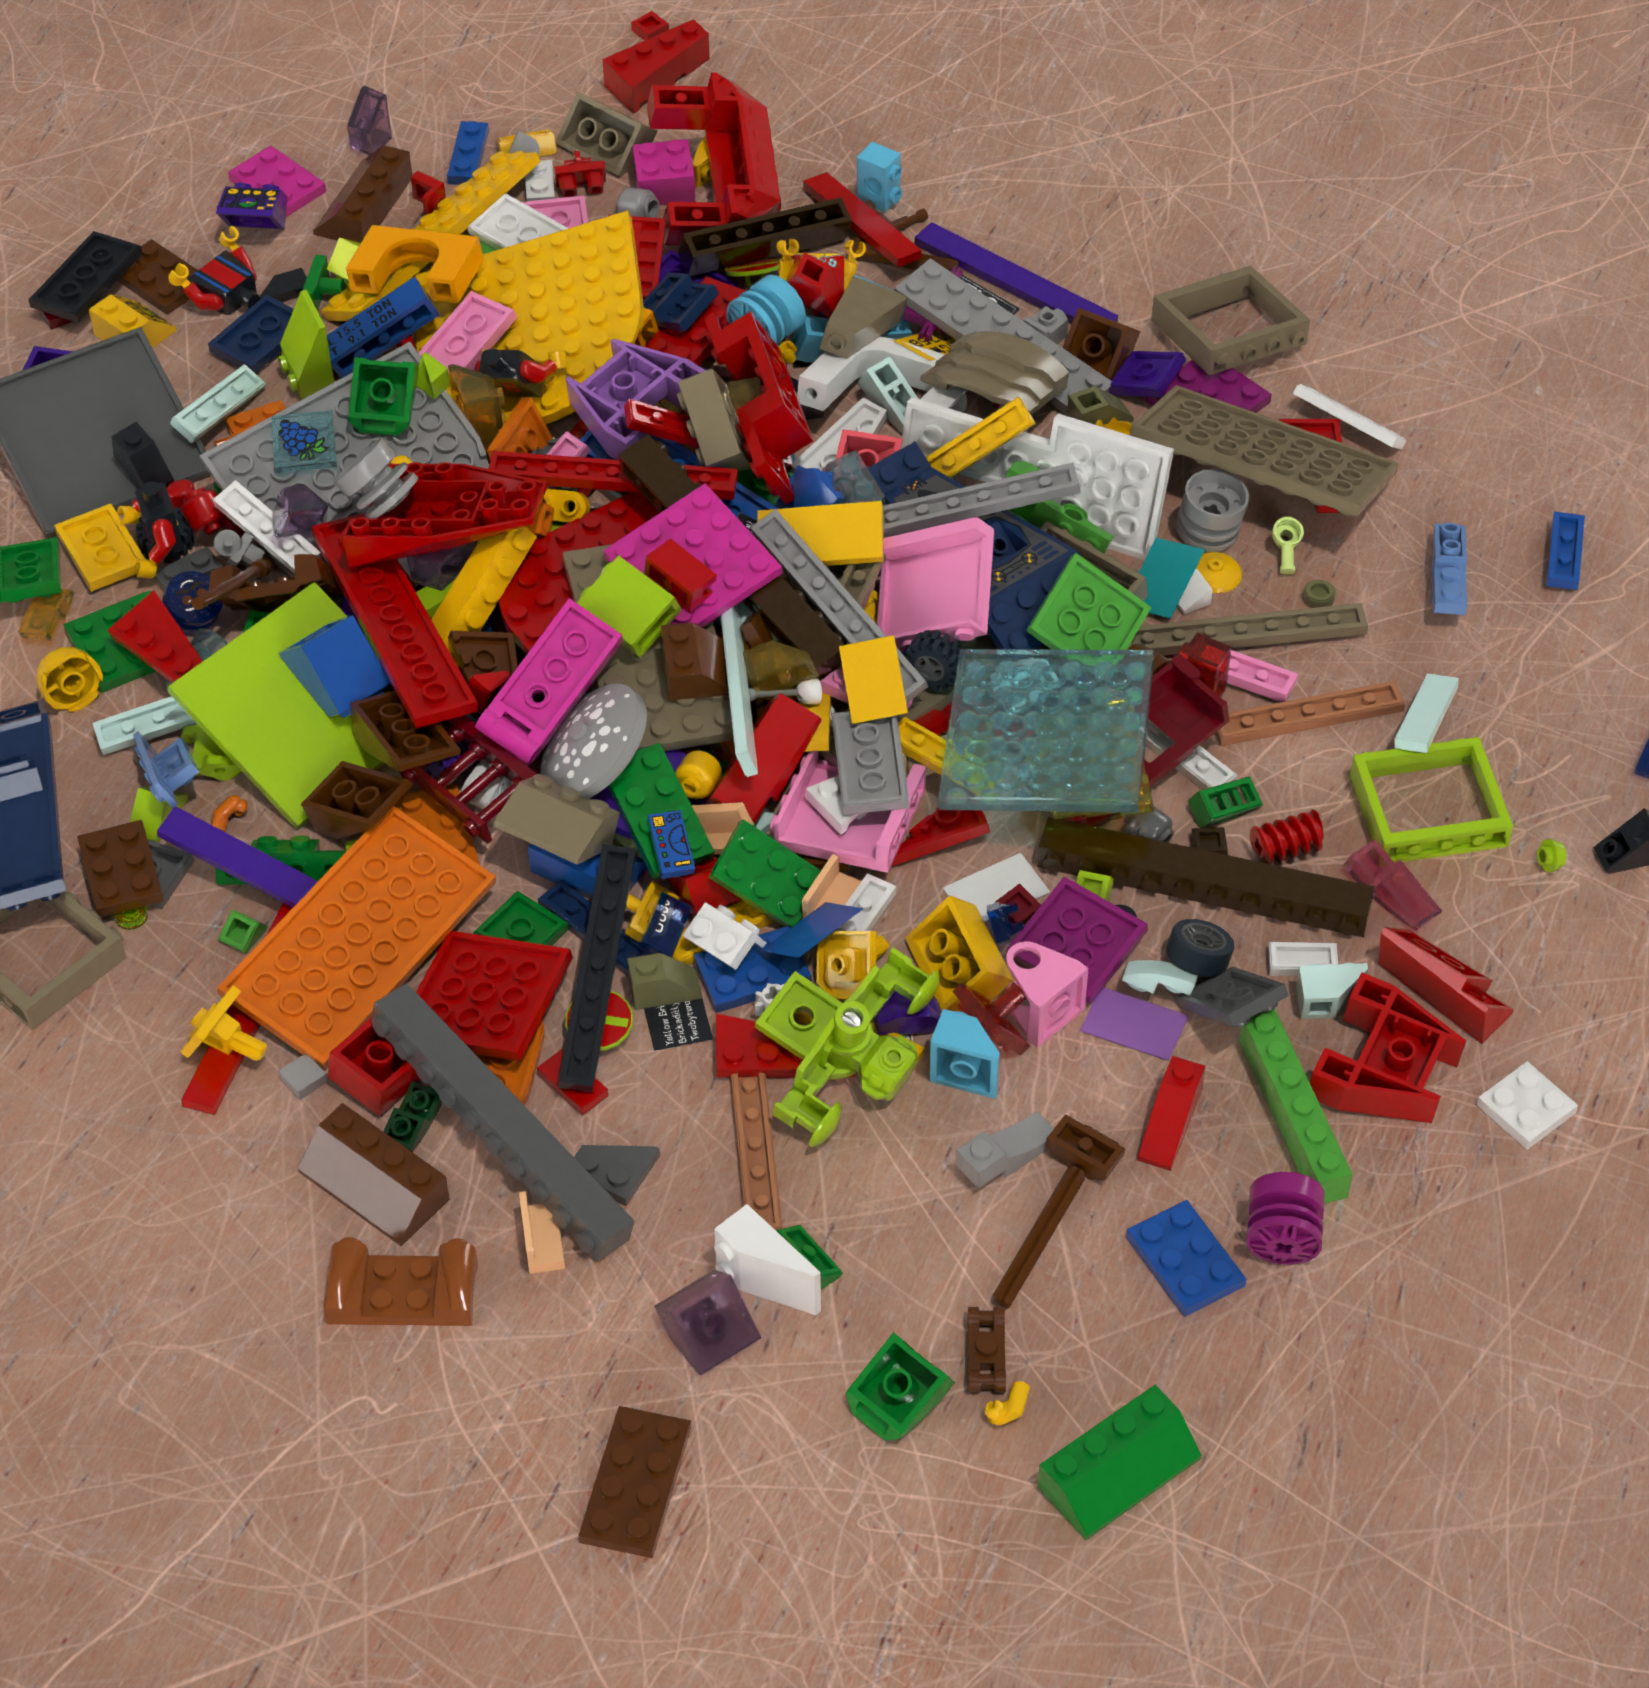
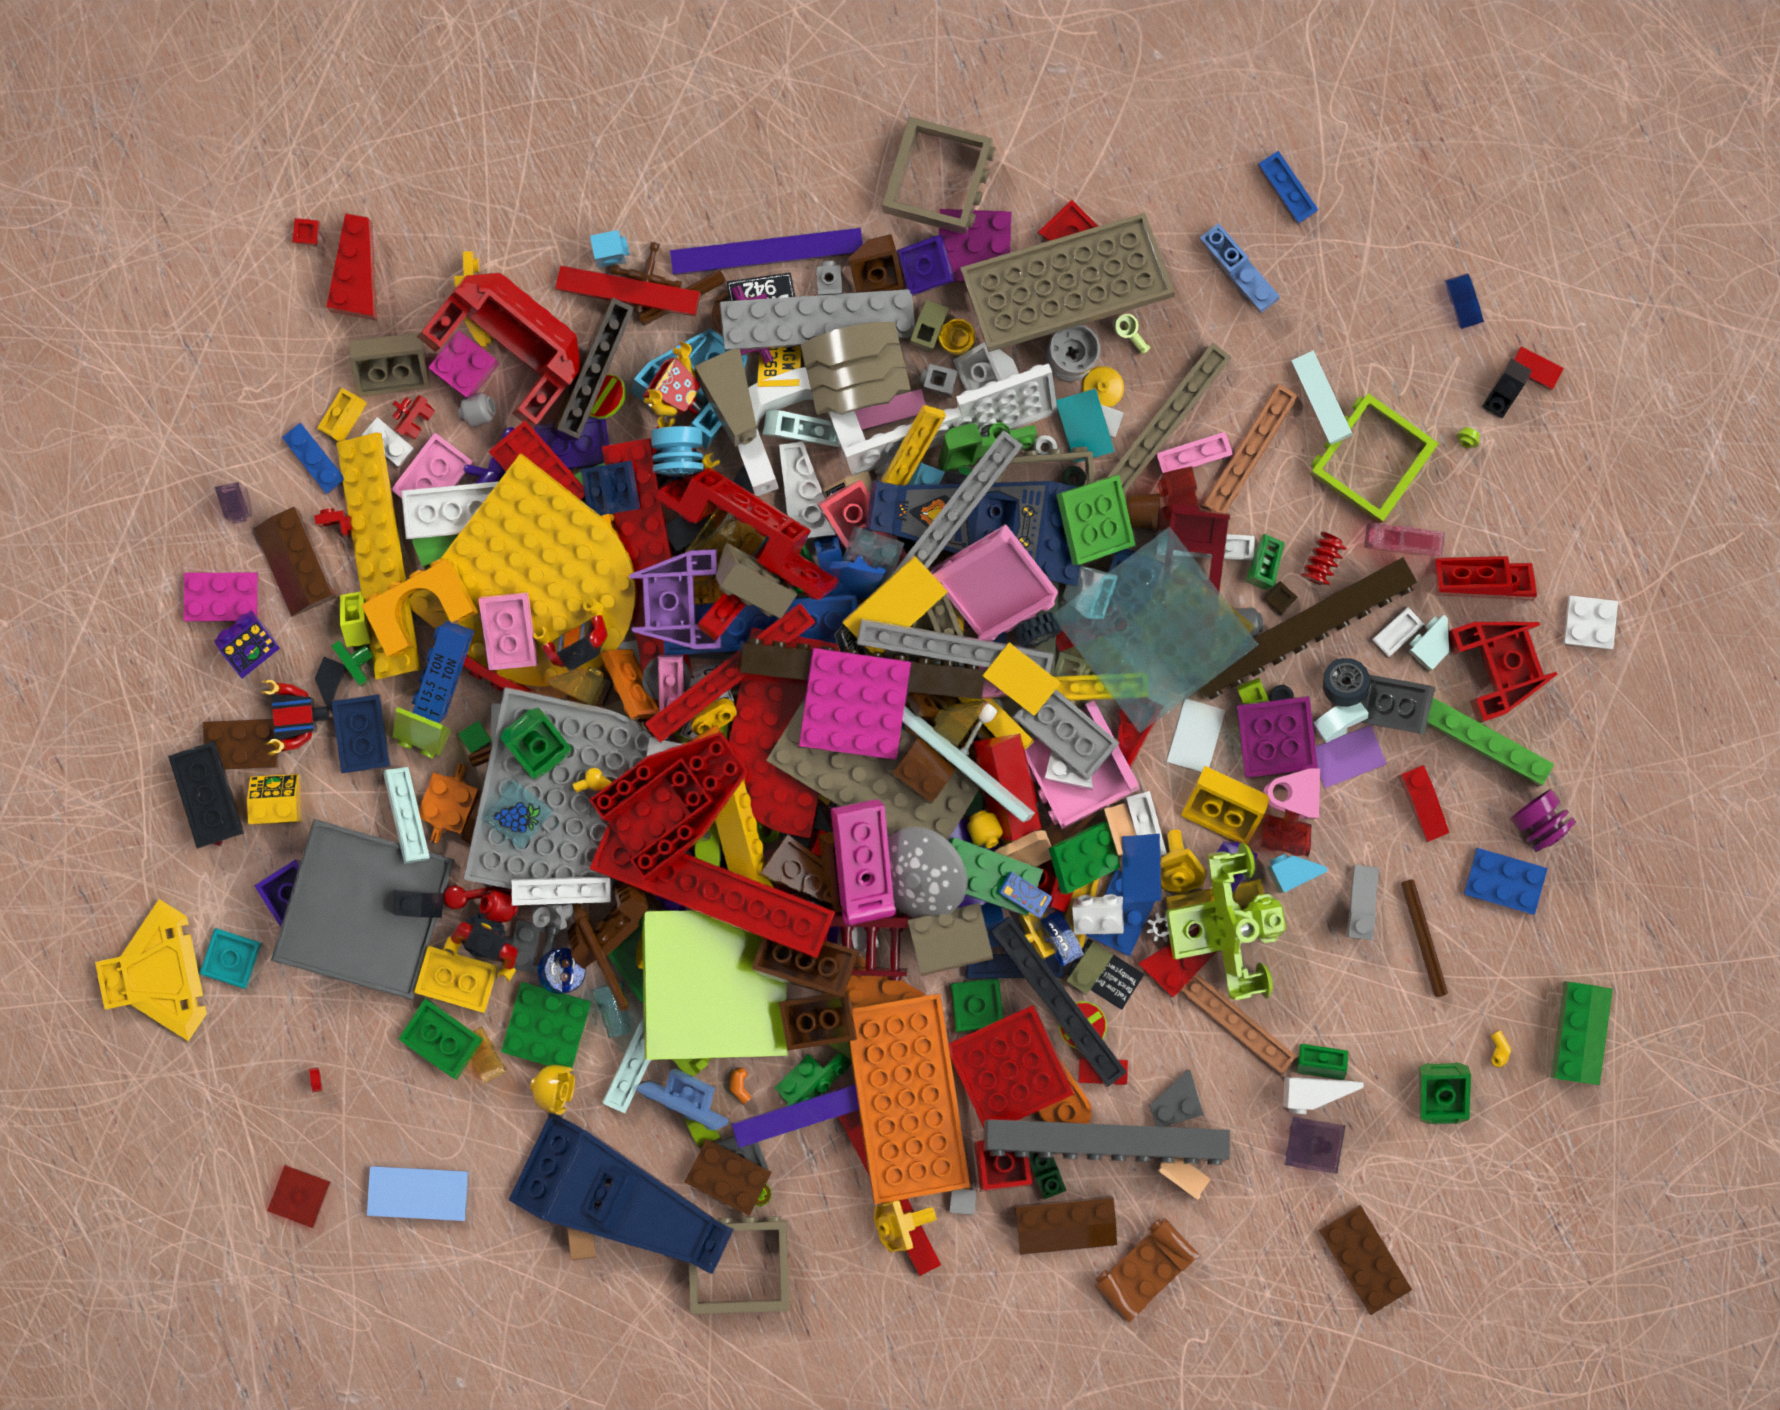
camera: 45 degrees left, 35 degrees up
(156, 638) = (581, 1020): red wing -> none
(241, 931) = (831, 1146): bright green slope -> none
(297, 511) = (572, 870): clear purple slope -> none
(336, 666) = (714, 952): blue slope -> none
(376, 480) = (623, 825): light grey wheel -> none
(432, 376) = (550, 703): lime slope -> none
(487, 686) = (820, 889): red slope -> none
(524, 143) = (351, 426): light grey tile -> none
(630, 604) = (856, 773): lime brick -> none
(680, 574) = (868, 729): red hinge -> none
(815, 284) = (690, 408): red slope -> none
(935, 721) = (1065, 663): red tile -> none
(986, 1350) = (1460, 1028): reddish brown plate -> none
(1000, 923) = (1230, 763): clear blue tile -> none
(1026, 903) = (1223, 742): dark red plate -> none
(1085, 1148) = (1401, 862): reddish brown slope -> none
(1319, 594) = (1178, 351): olive tile -> none
(1350, 416) = (1074, 189): white tile -> none

